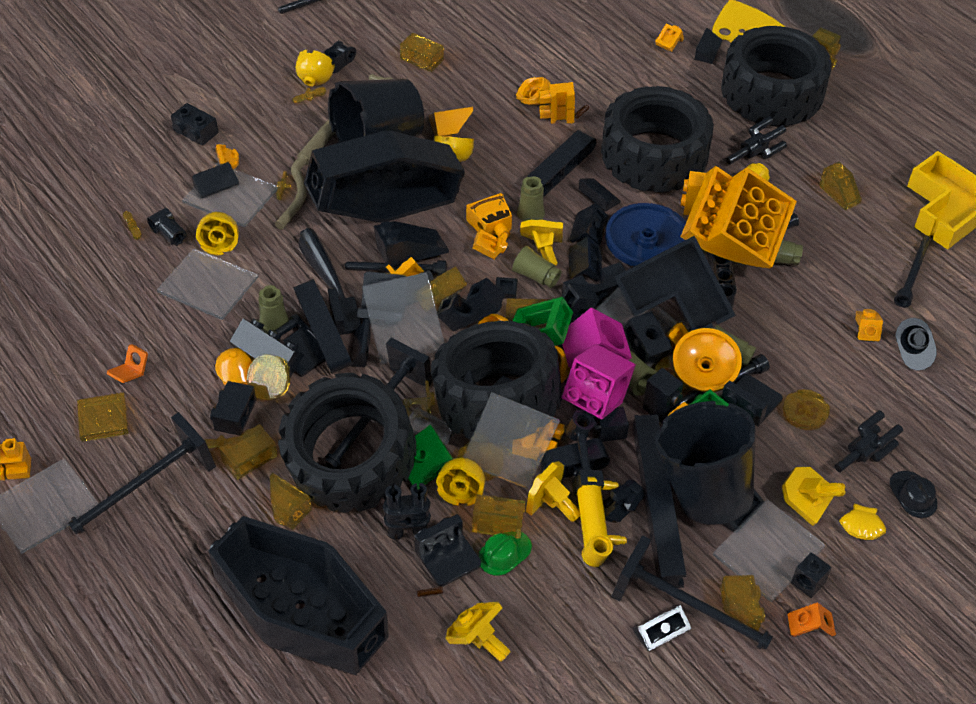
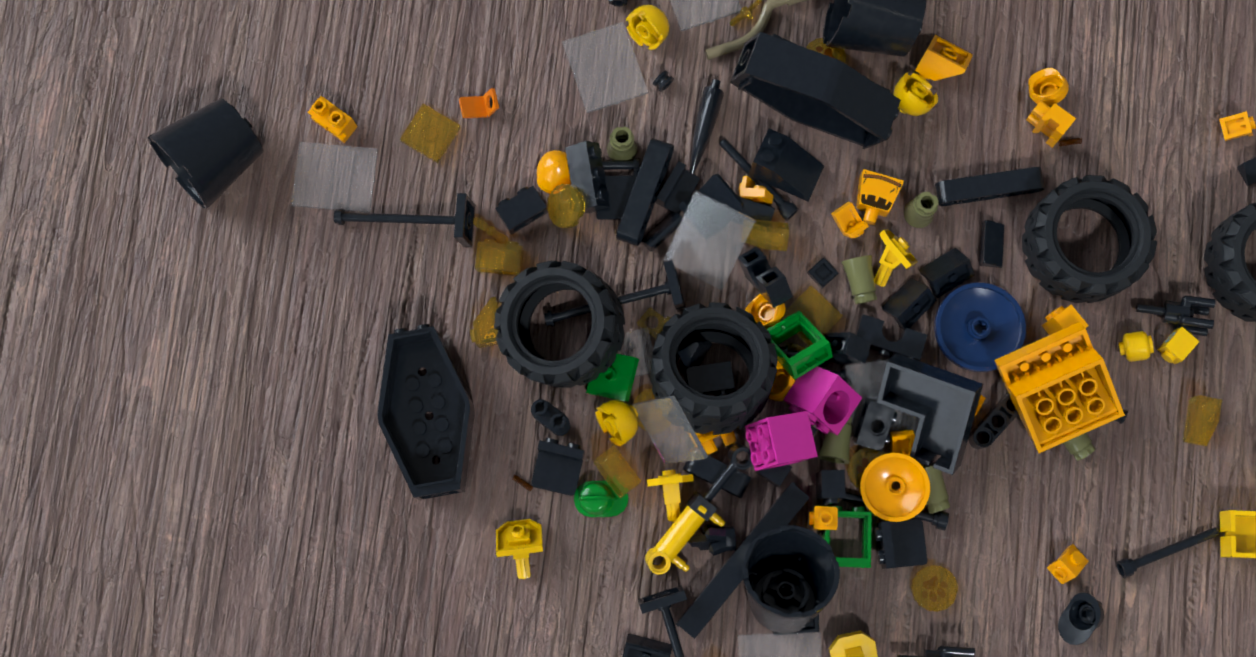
camera: 45 degrees right, 30 degrees up
(263, 258) = (663, 81): none -> black bush
(777, 160) = (1177, 346): none -> yellow brick

